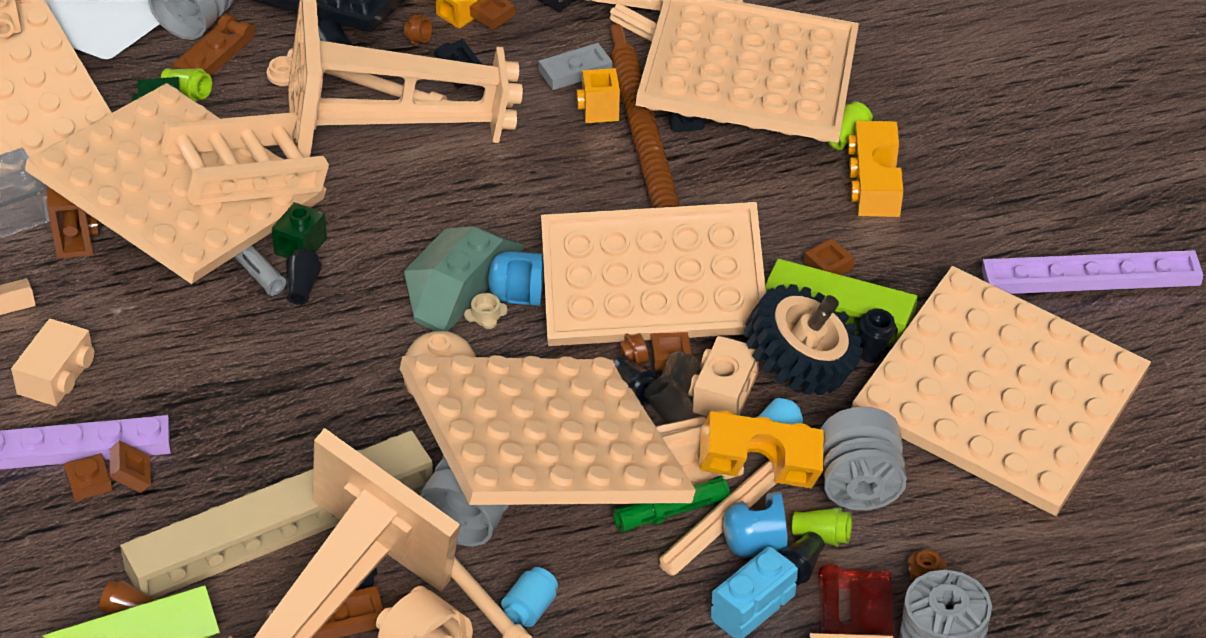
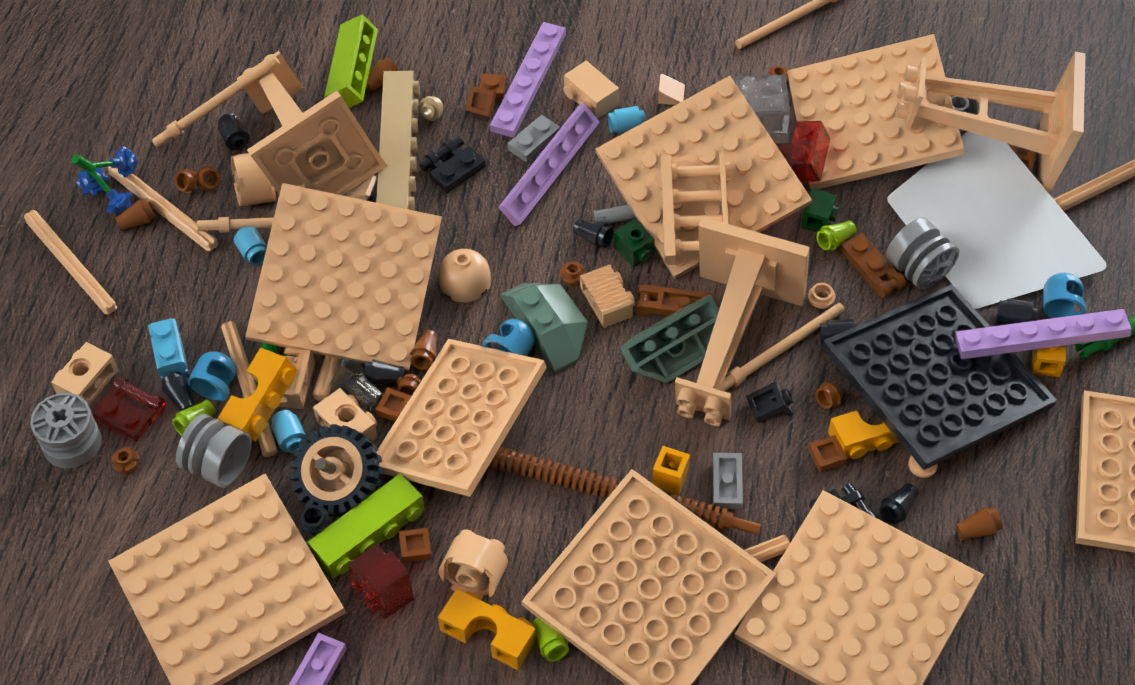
camera: 120 degrees right, 10 degrees up
(79, 107) = (807, 151): none -> clear red brick
(93, 309) = (625, 119): none -> medium azure brick
(165, 397) = (533, 138): none -> light grey plate
(168, 512) = (432, 103): none -> tan plate
(194, 355) = (548, 165): none -> lavender plate
(259, 450) = (455, 170): none -> black plate
(367, 176) = (668, 300): none -> dark orange plate
(374, 277) = (569, 278): none -> dark orange plate
(394, 229) = (607, 296): none -> light nougat brick
(423, 152) = (673, 342): none -> sand green wedge
(485, 310) = (497, 315): tan plate -> none
(579, 348) = (424, 350): none -> dark orange cone
(823, 191) = (474, 564): none -> light nougat brick
(899, 247) = (382, 581): none -> clear red brick

